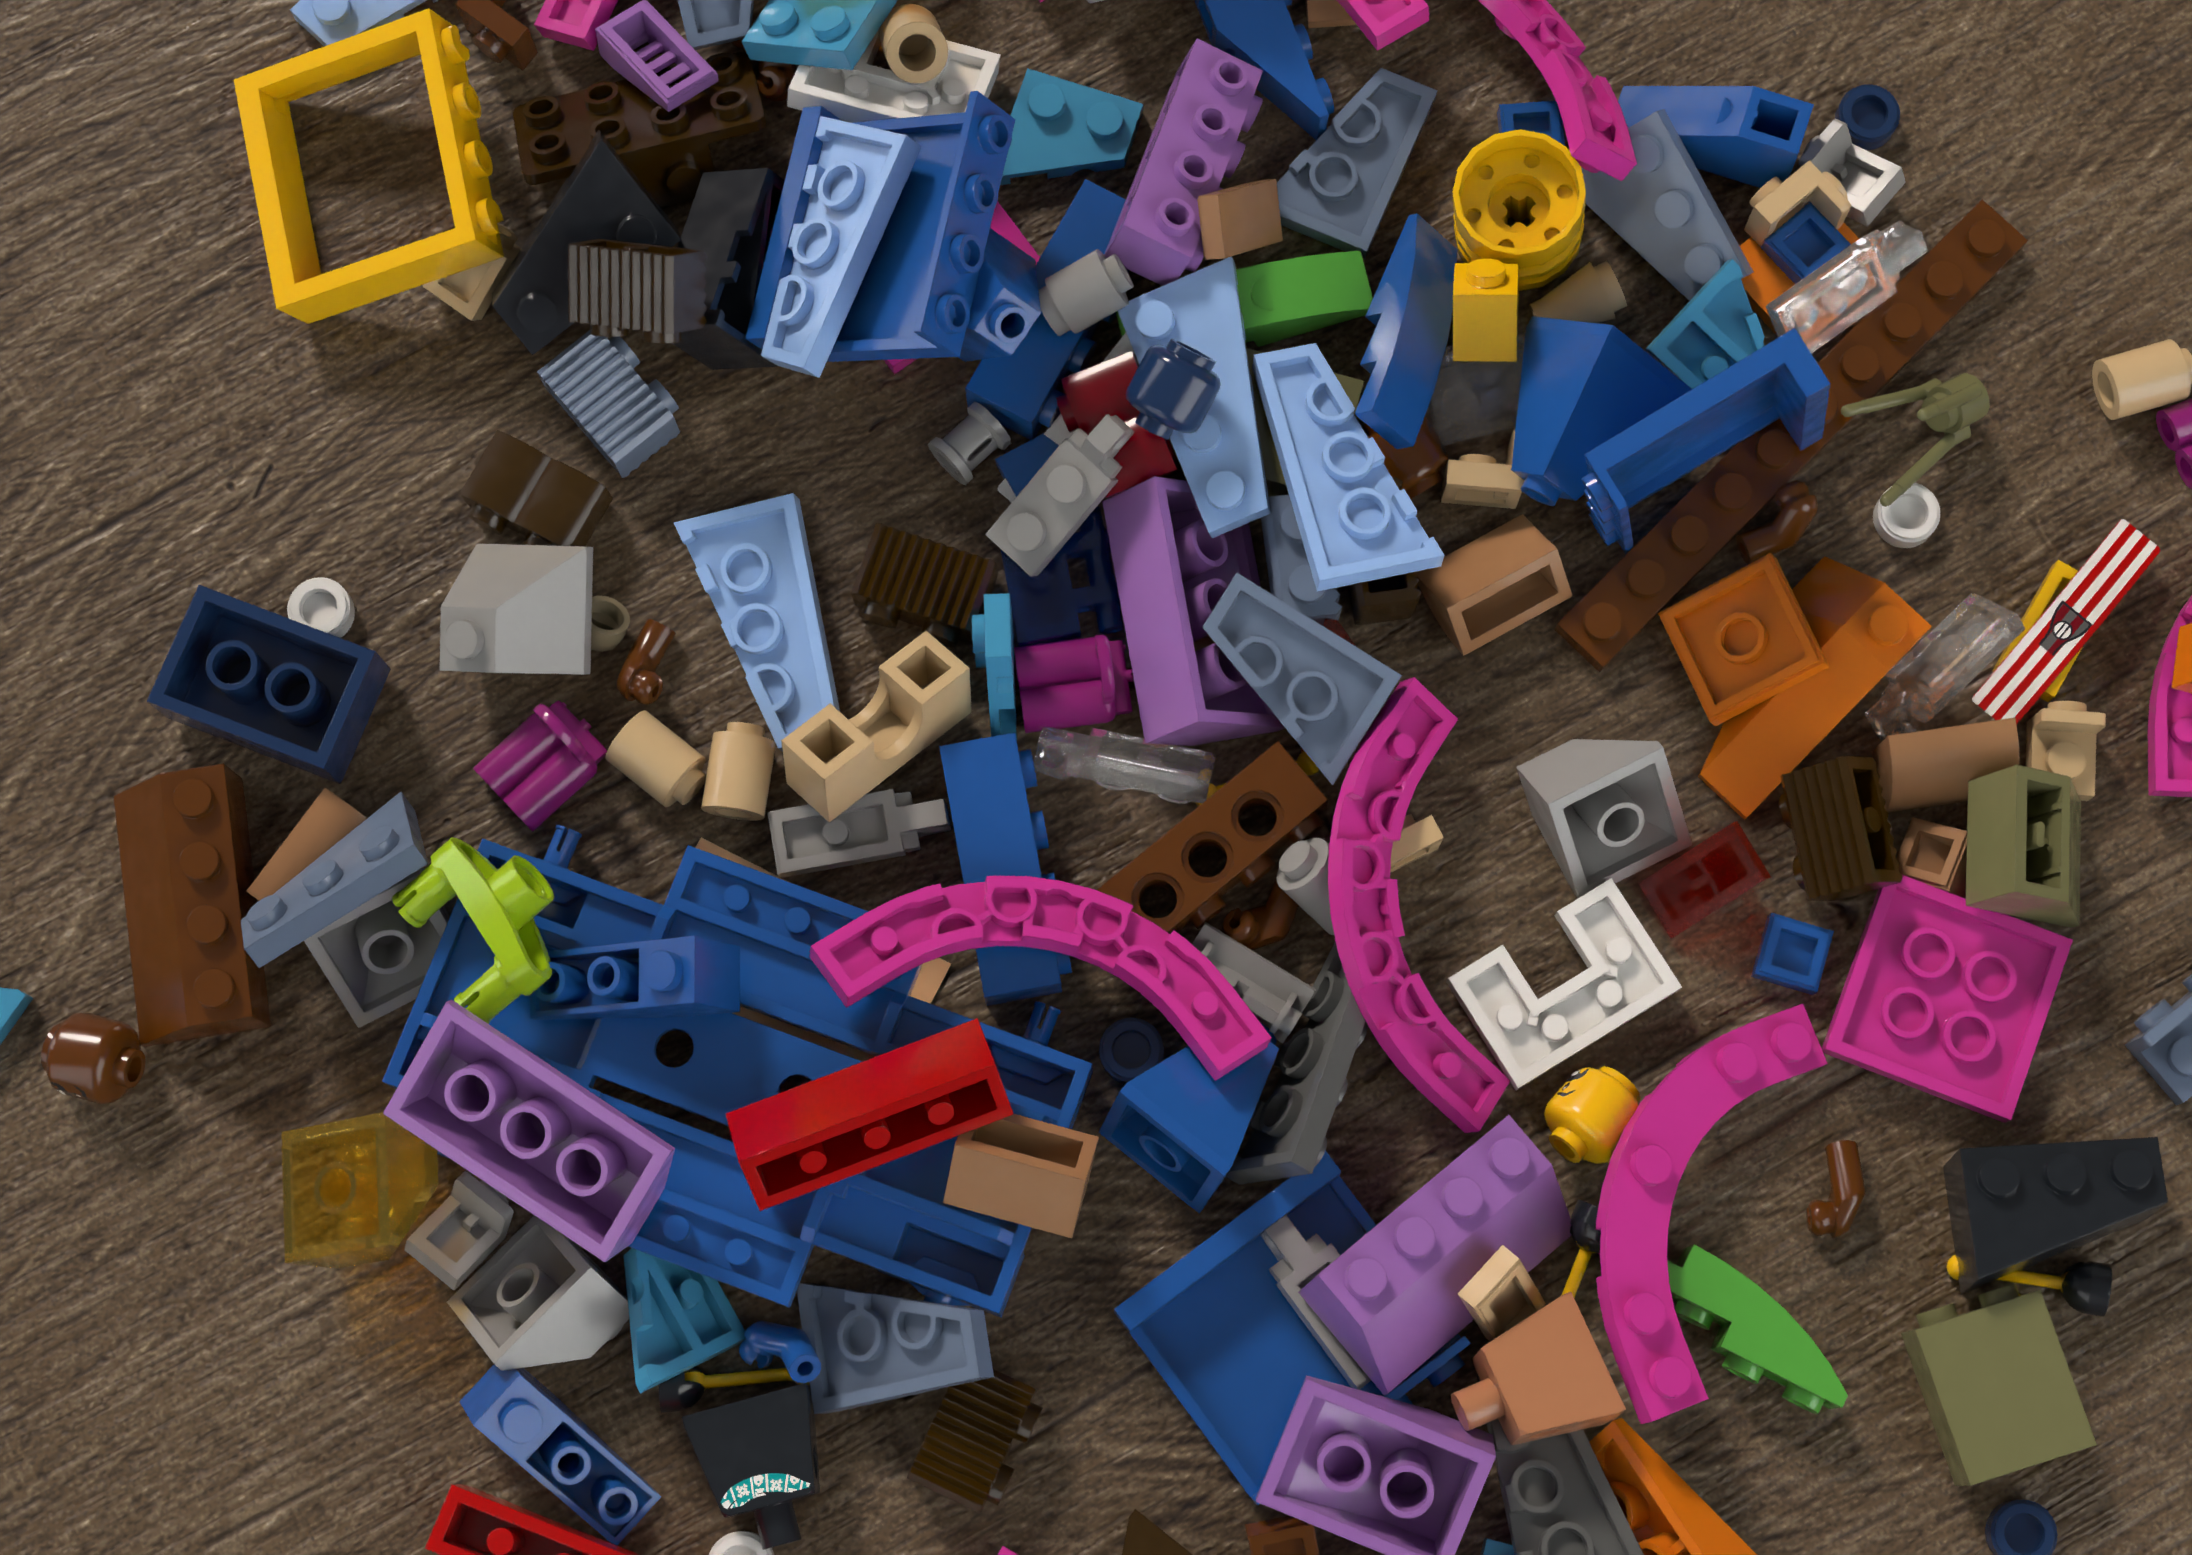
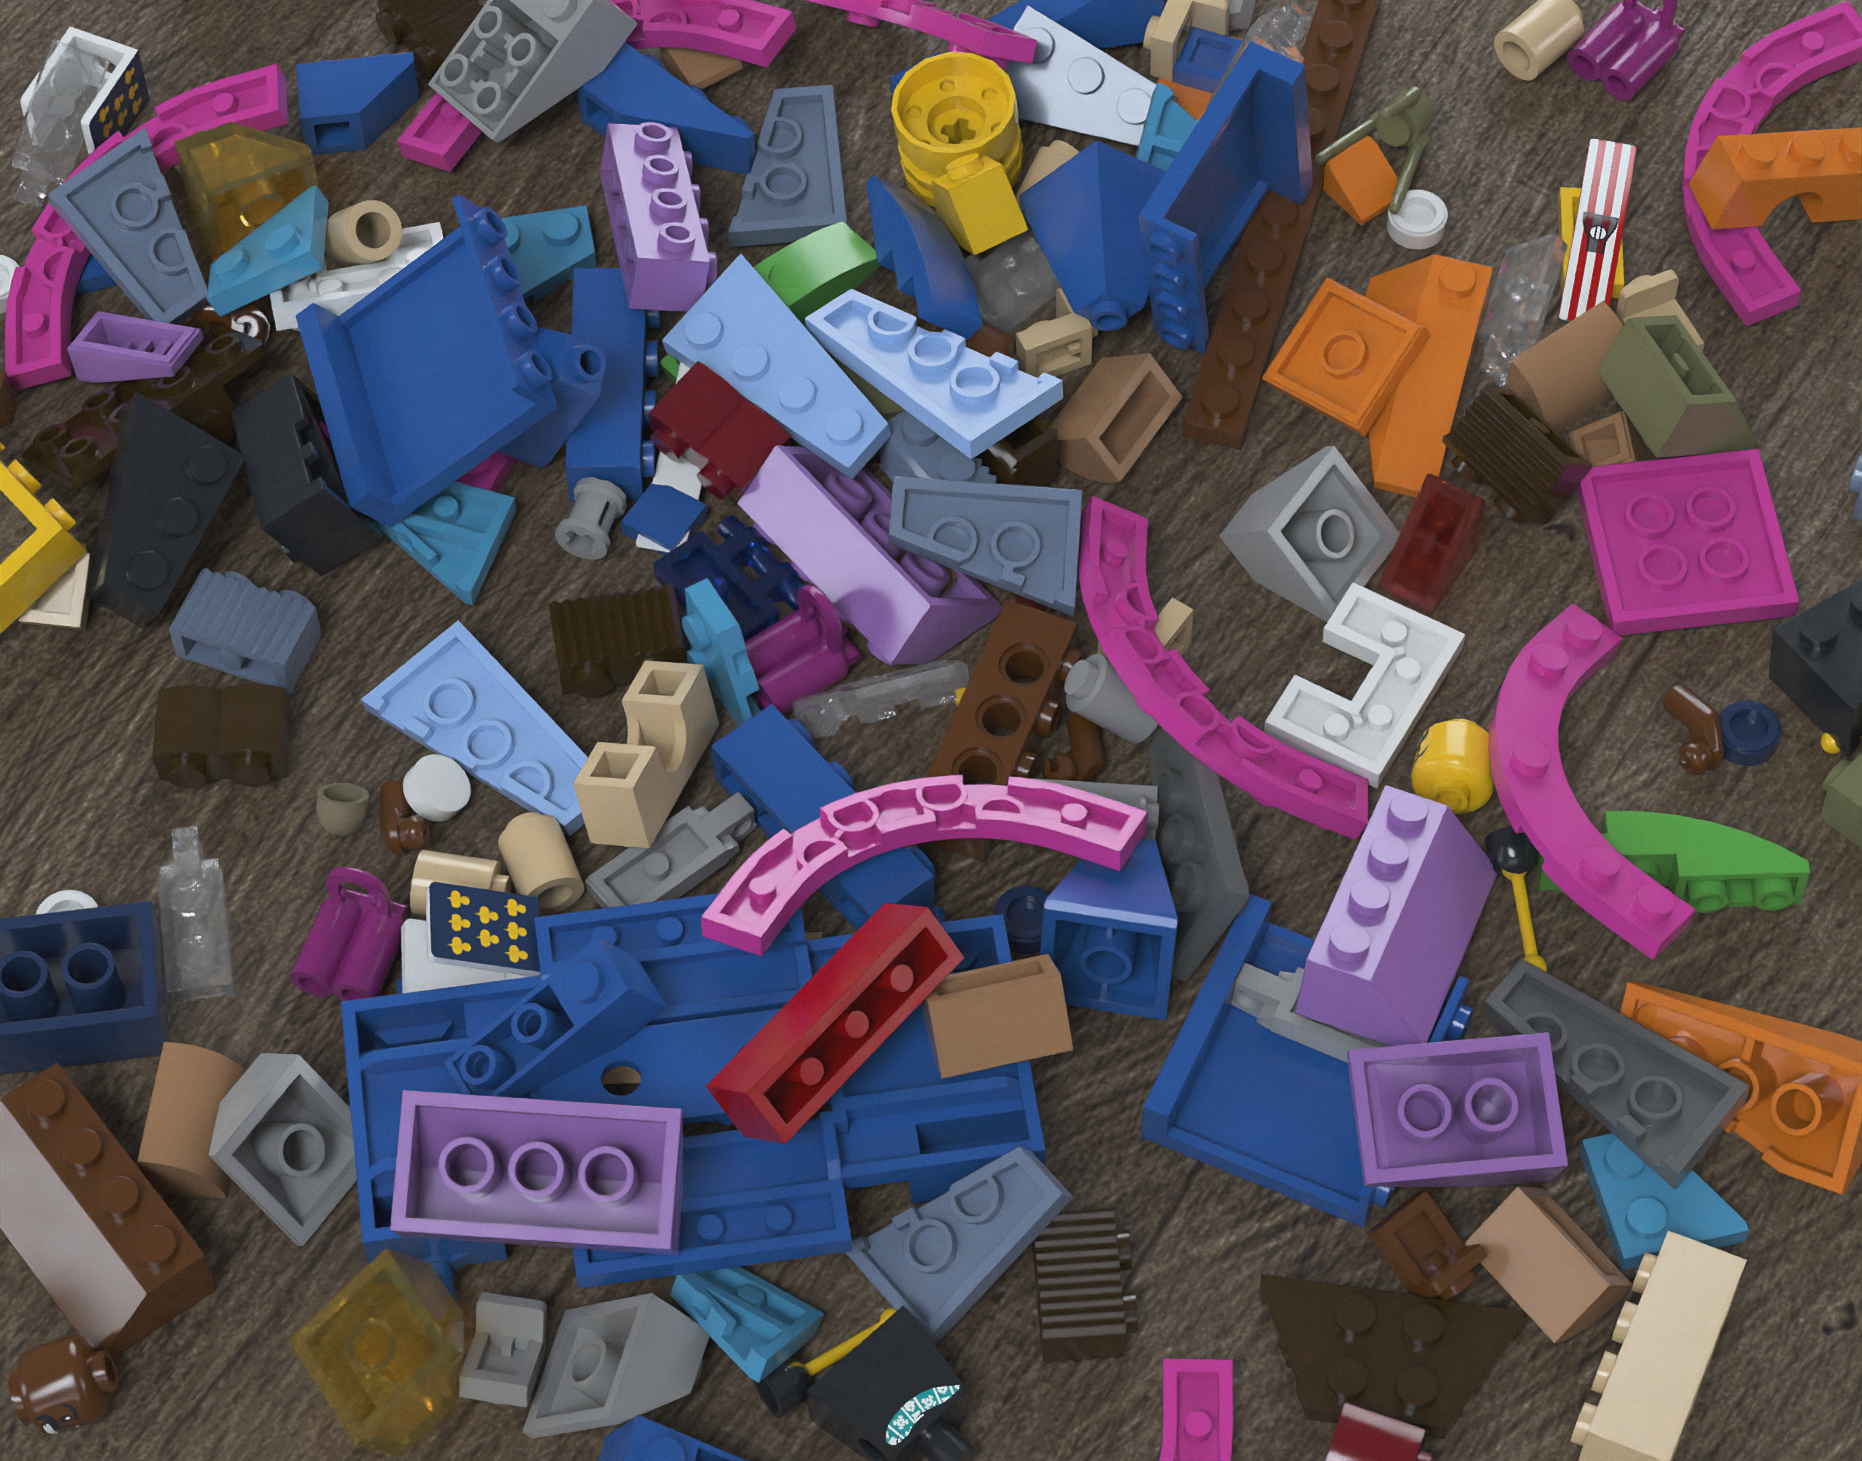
camera: 30 degrees left, 20 degrees down
(340, 880) = (226, 1096): sand blue wing -> none
(413, 686) = (194, 922): none -> clear hinge
(502, 909) = (395, 1021): lime connector -> none
(520, 611) = (267, 821): light grey slope -> none
(627, 834) = (469, 938): none -> piece
(636, 288) = (236, 488): dark brown brick -> none
(691, 648) = (436, 788): none -> white tile
(789, 1343) = (865, 1292): blue arm -> none
(844, 221) = (387, 373): light blue wing -> none
(846, 405) = (456, 536): none -> dark azure wing
(1061, 495) = (701, 501): light grey hinge -> none
(1084, 292) = (632, 336): light grey brick -> none
(1173, 389) = (755, 359): dark blue head -> none
(1239, 219) = (728, 229): medium nougat tile -> none
(1501, 1294) = (1472, 931): tan tile -> none
(1541, 1378) = (1549, 971): nougat torso -> none
(1786, 529) = (1327, 253): reddish brown arm -> none
(1792, 954) = (1538, 576): blue tile -> none
(1877, 450) = (1360, 180): none -> orange slope
(1887, 1217) = (1749, 732): none -> dark blue tile

